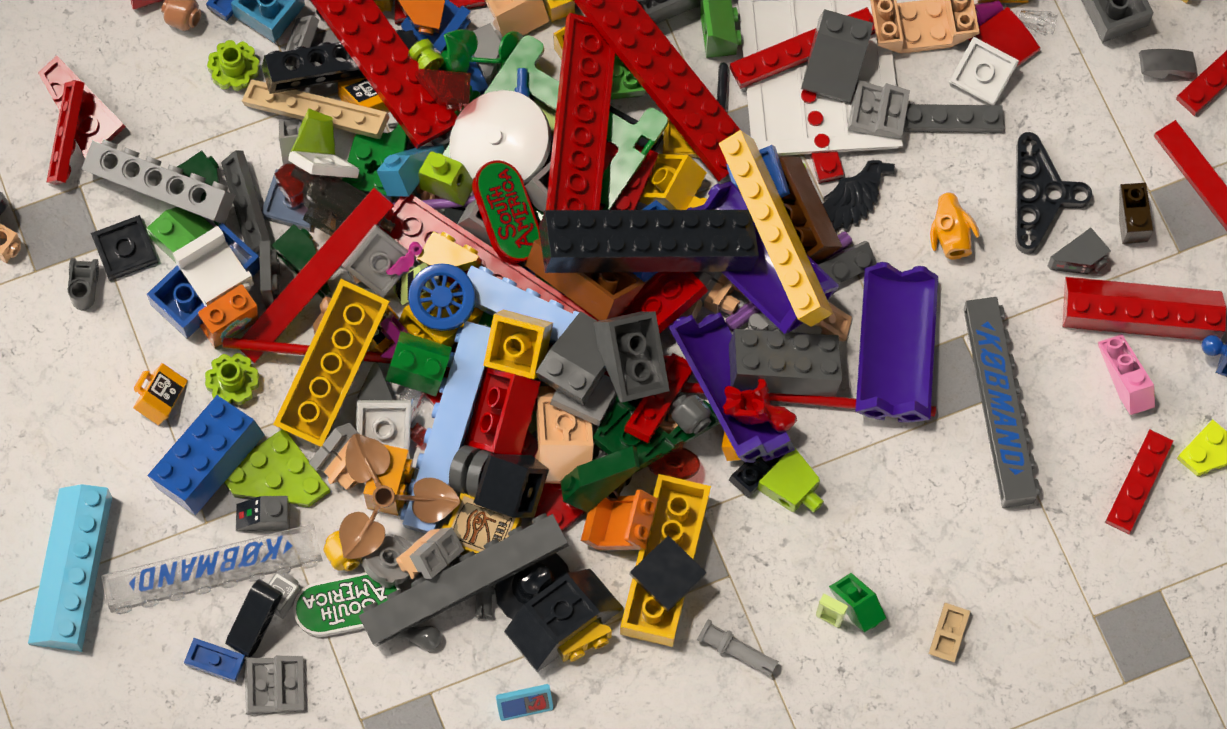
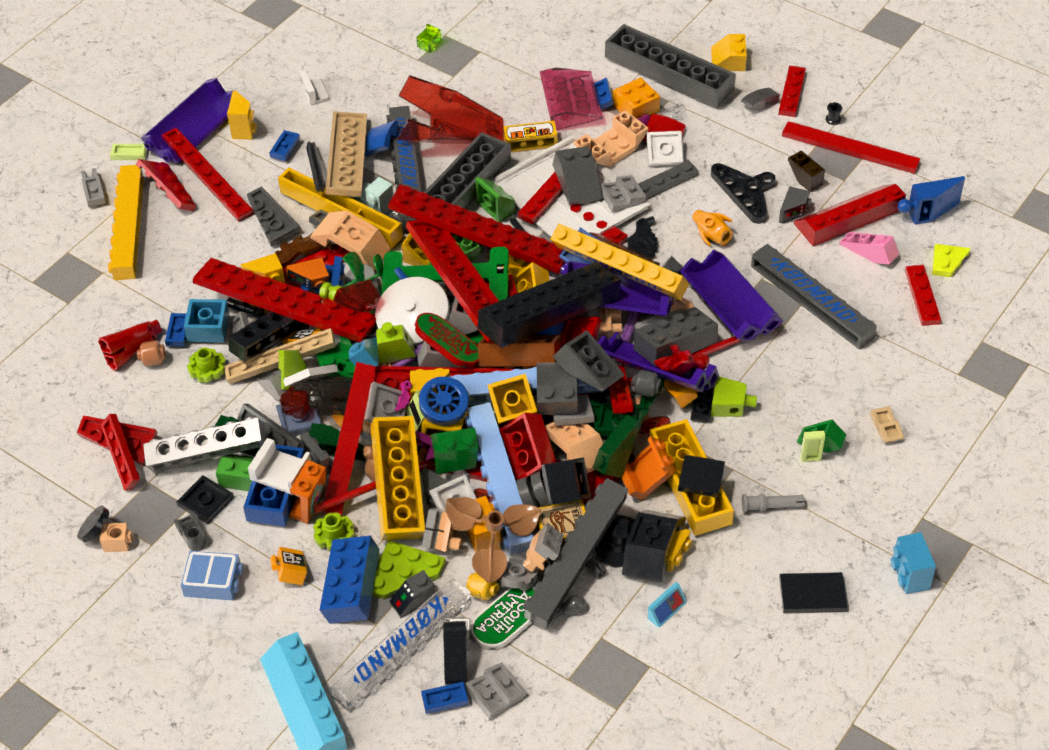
camera: 30 degrees left, 20 degrees down
(69, 354) = (211, 575): none -> medium blue brick

